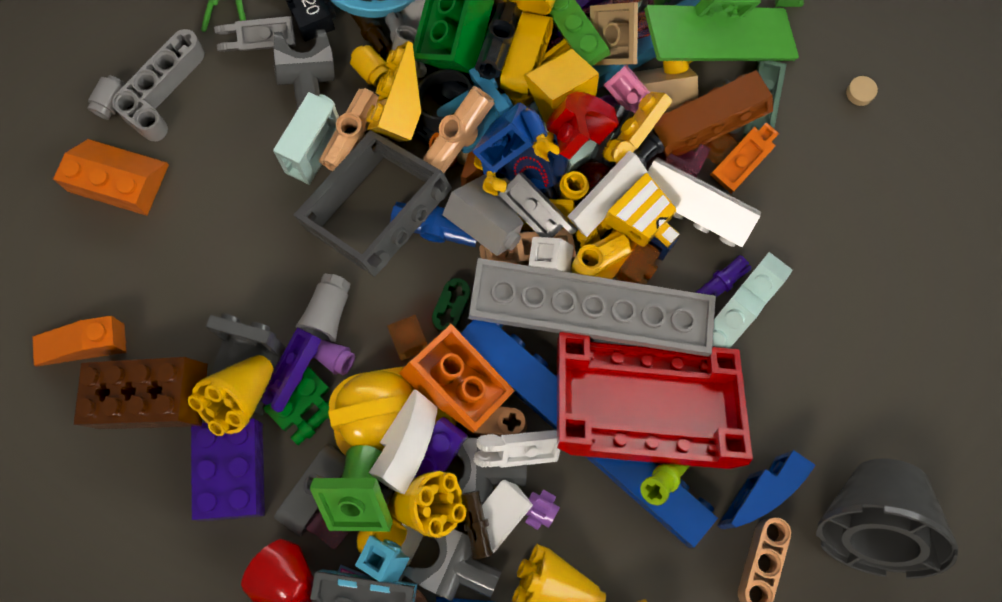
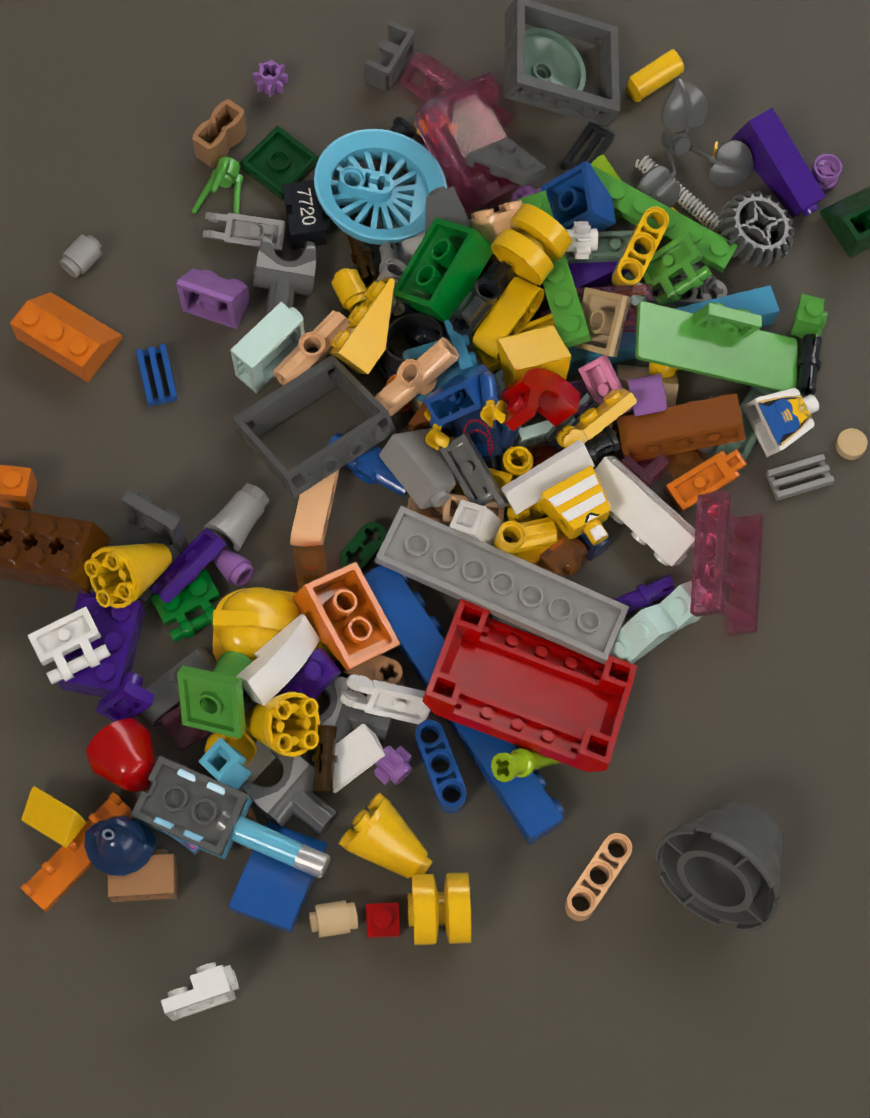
camera: 15 degrees right, 5 degrees down
(187, 478) = (64, 637): none -> white plate
(190, 53) = (175, 231): light grey beam -> none
(200, 173) = (152, 353): none -> blue tile
(242, 104) = (213, 297): none -> medium lavender slope
(268, 520) = (126, 700): none -> dark purple tile
(396, 287) = (314, 513): none -> light nougat beam
(587, 513) = (438, 751): none -> blue beam
(678, 88) = (649, 394): none -> medium lavender piece
(767, 489) = (619, 806): blue slope -> none
(793, 231) = (710, 563): none -> clear pink fence
(797, 84) = (780, 418): none -> torso
(802, 28) = (809, 364): none -> black pin
(843, 121) = (797, 466): none -> light grey tile

